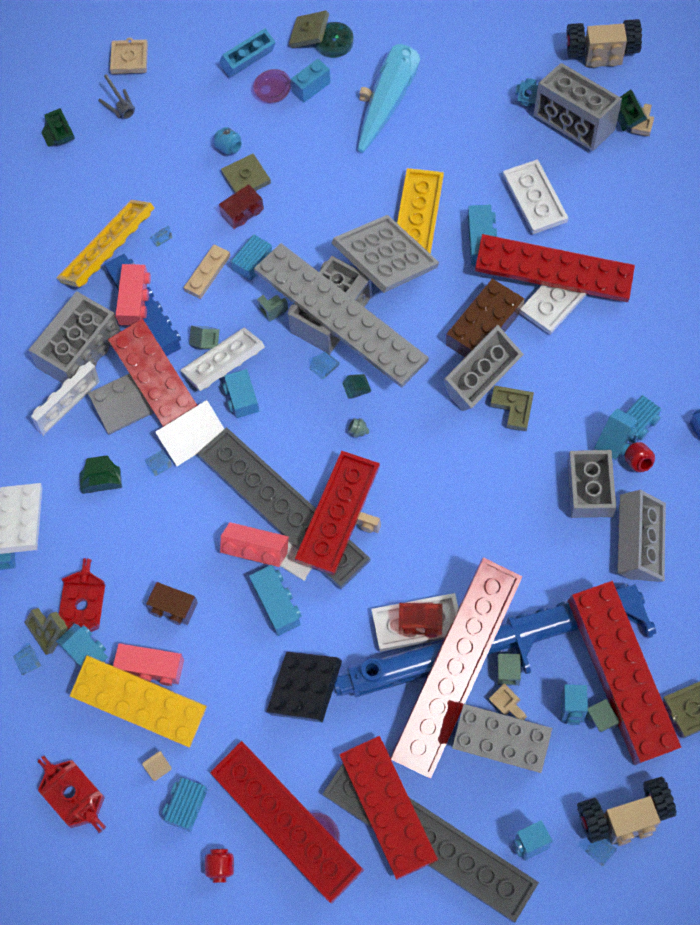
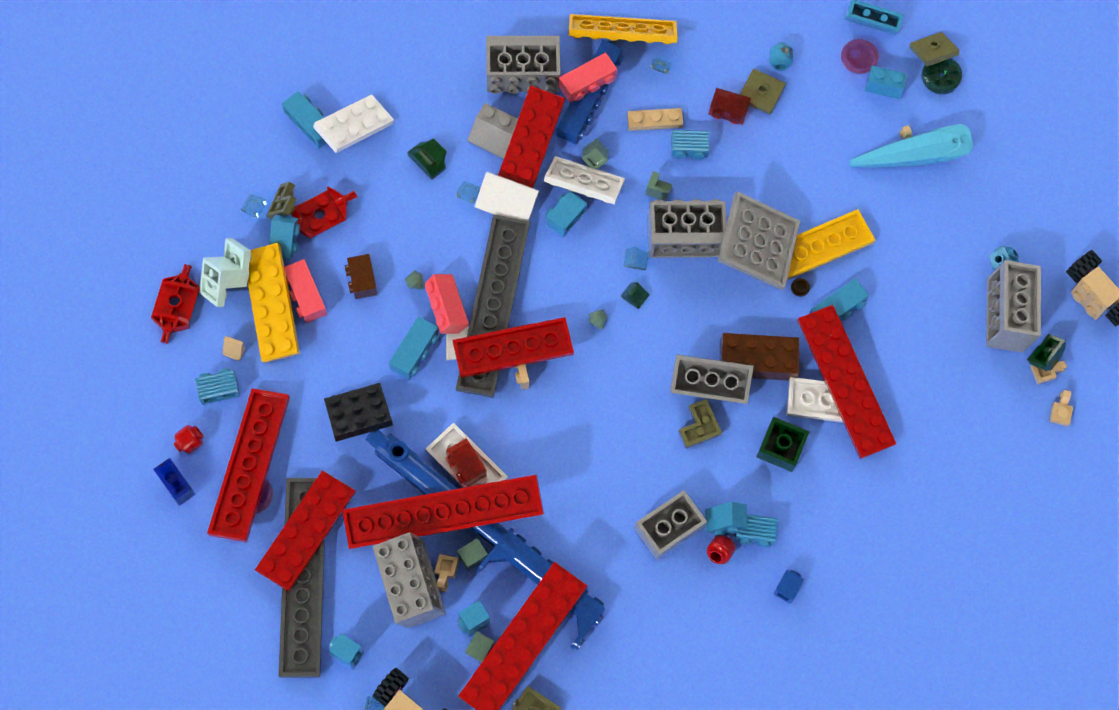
camera: 45 degrees right, 5 degrees up
(63, 400) = (471, 90): white plate -> none
(78, 724) = (225, 272): none -> light aqua bracket
(209, 559) = (415, 280): none -> sand green plate
(254, 904) = (174, 481): none -> clear blue brick
(341, 315) = (676, 242): light grey plate -> none
(443, 253) = (800, 287): none -> dark brown plate
(535, 196) = (907, 326): white plate -> none
(577, 350) = (782, 444): none -> dark green brick
(641, 537) = (653, 592): light grey slope -> none
(684, 133) = (1061, 411): none -> tan plate

